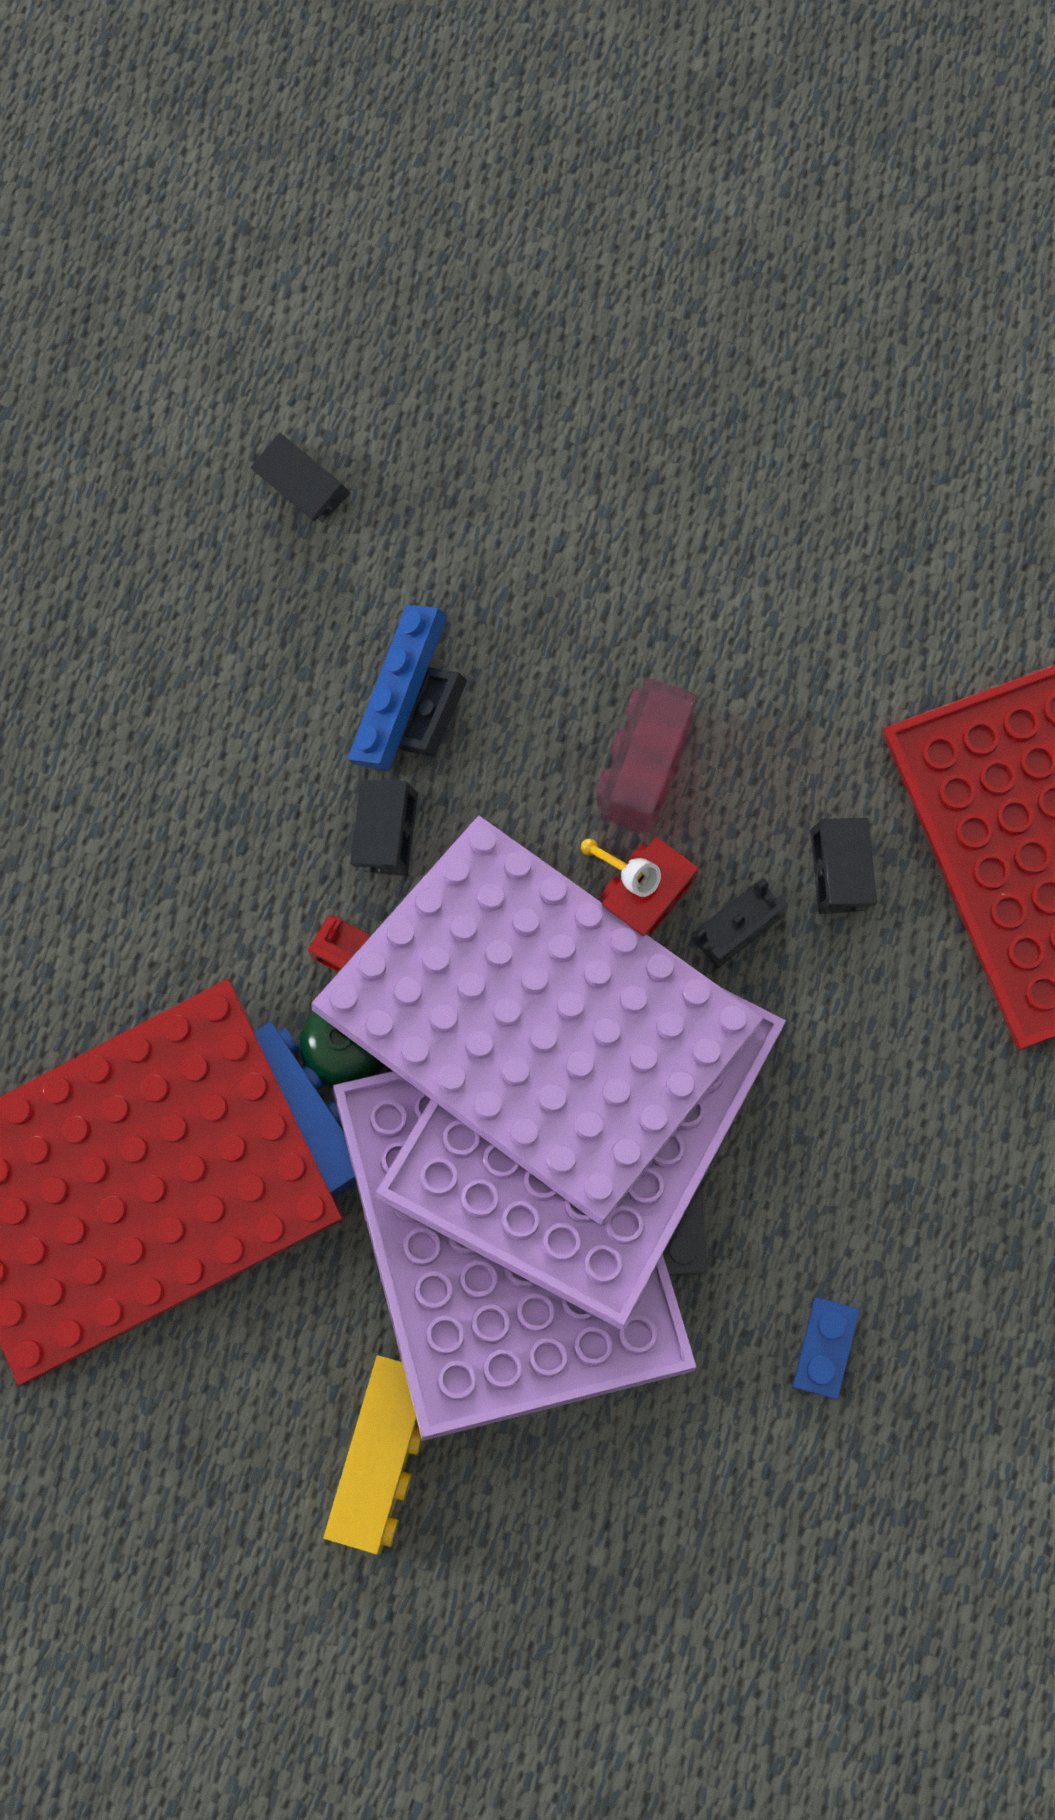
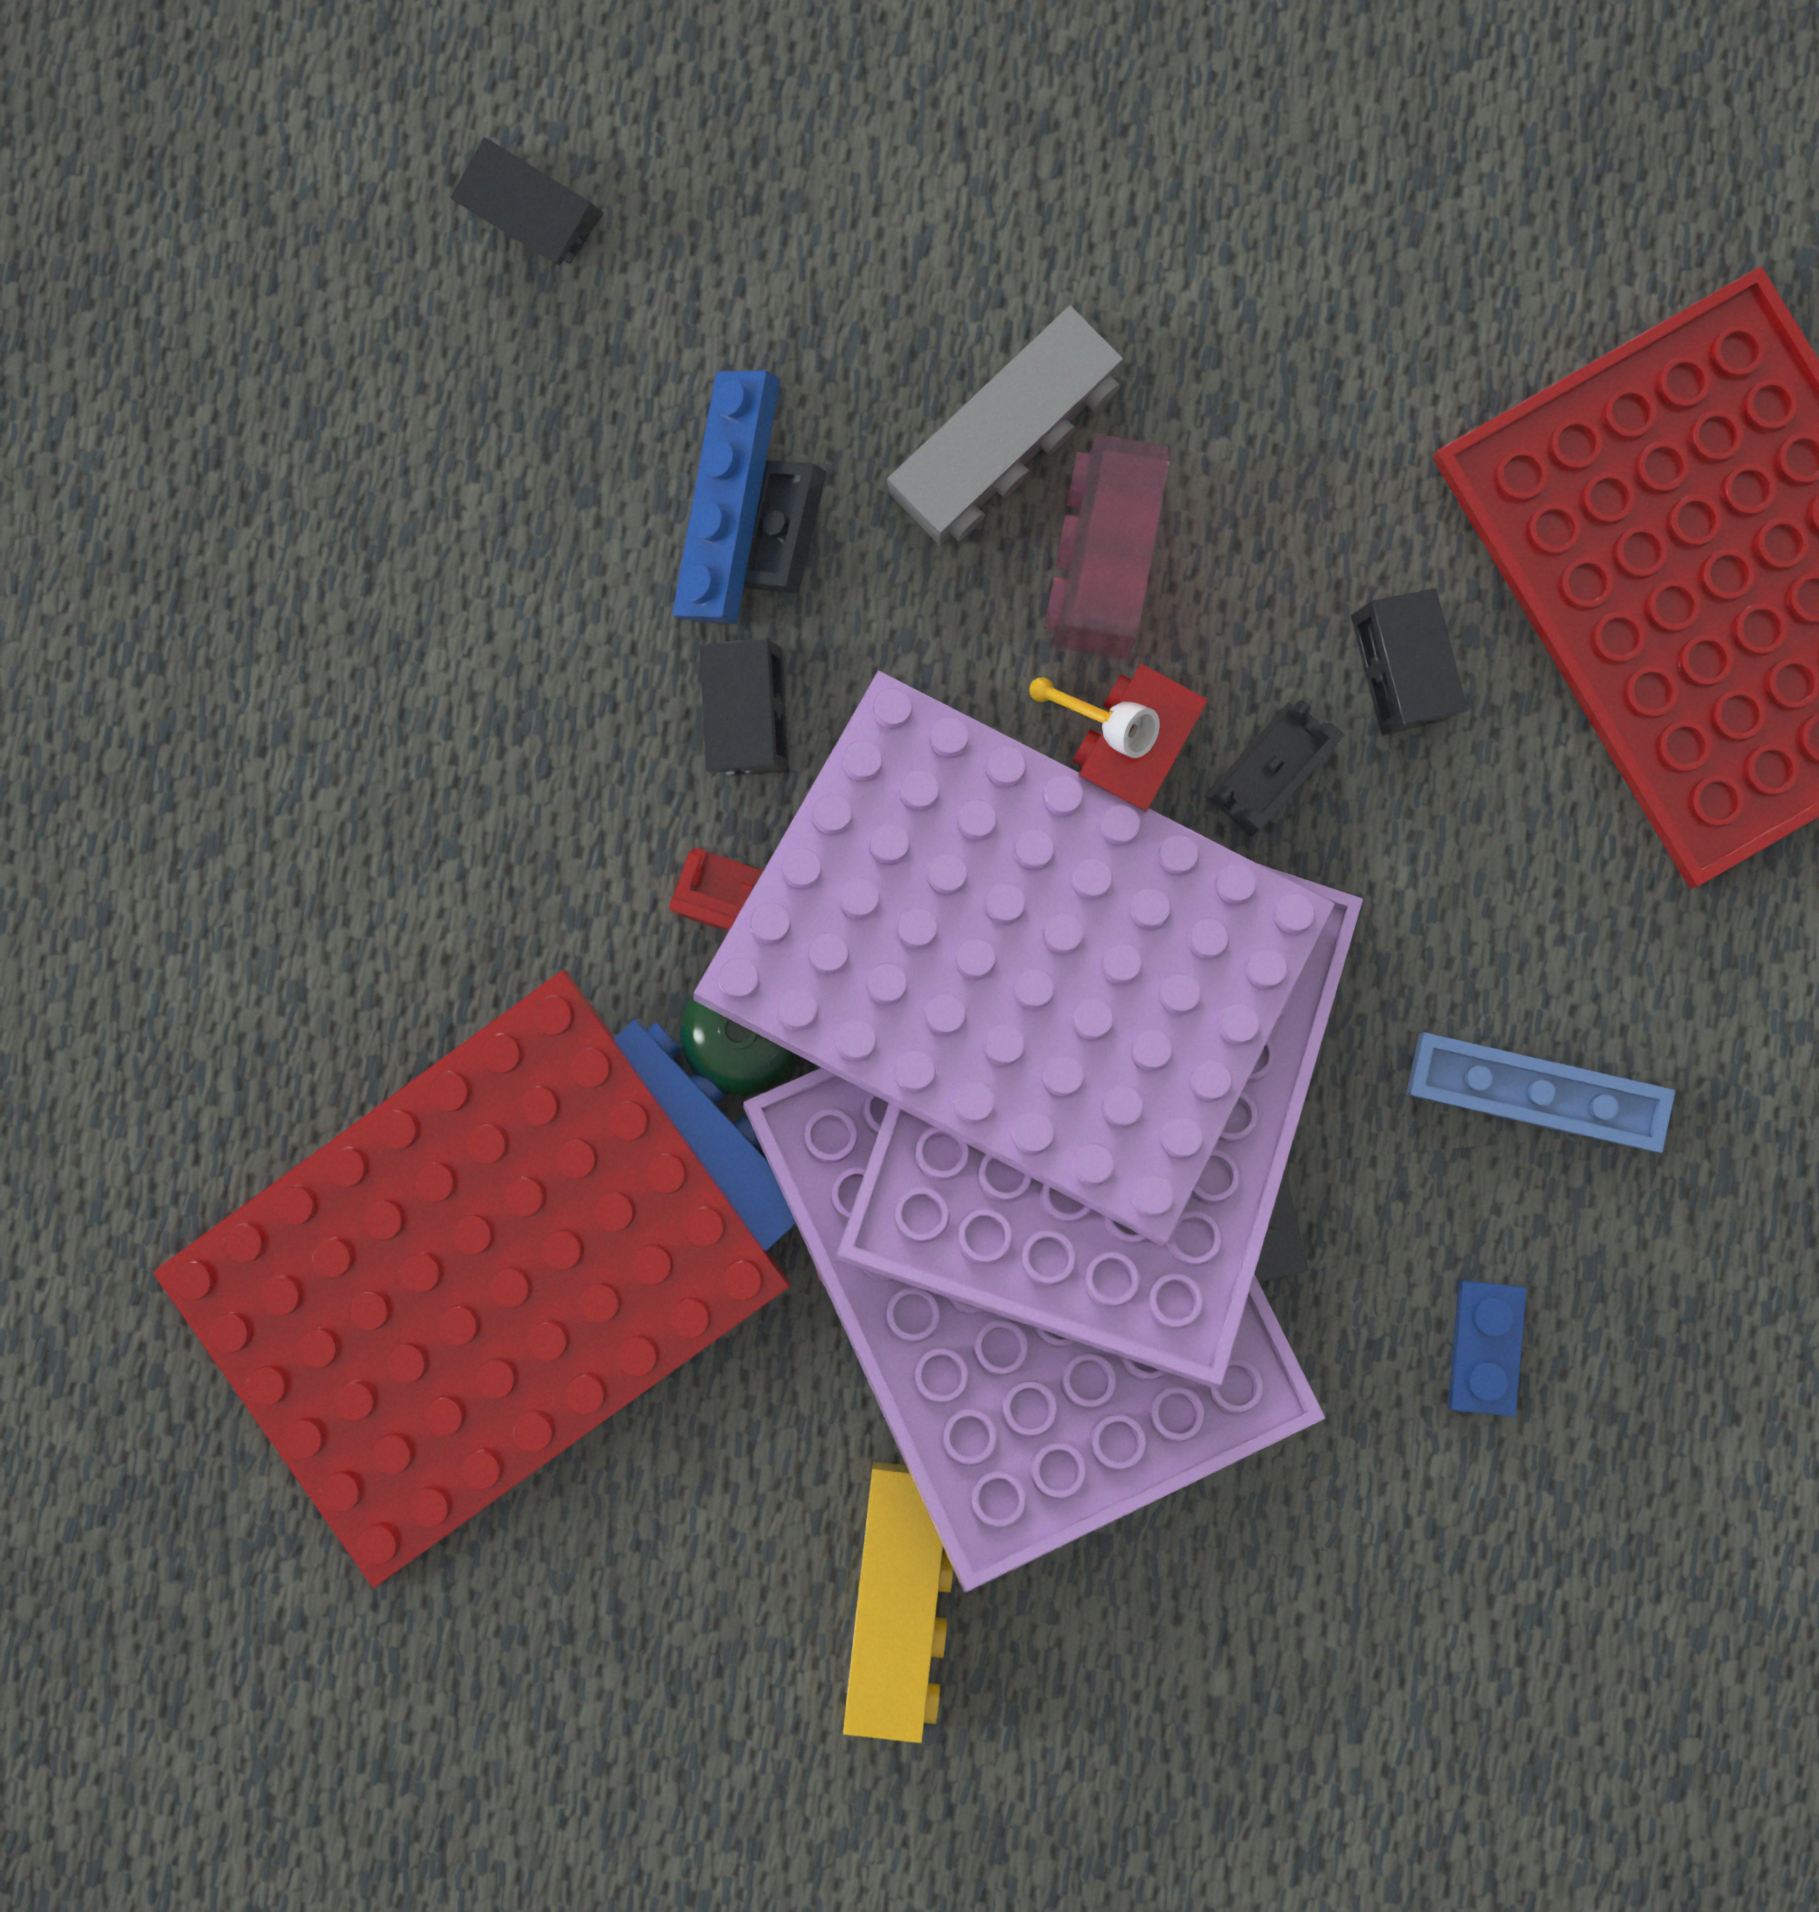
camera: 15 degrees left, 10 degrees up
(592, 669) = (1006, 426): none -> light grey brick
(890, 1174) = (1540, 1092): none -> medium blue plate

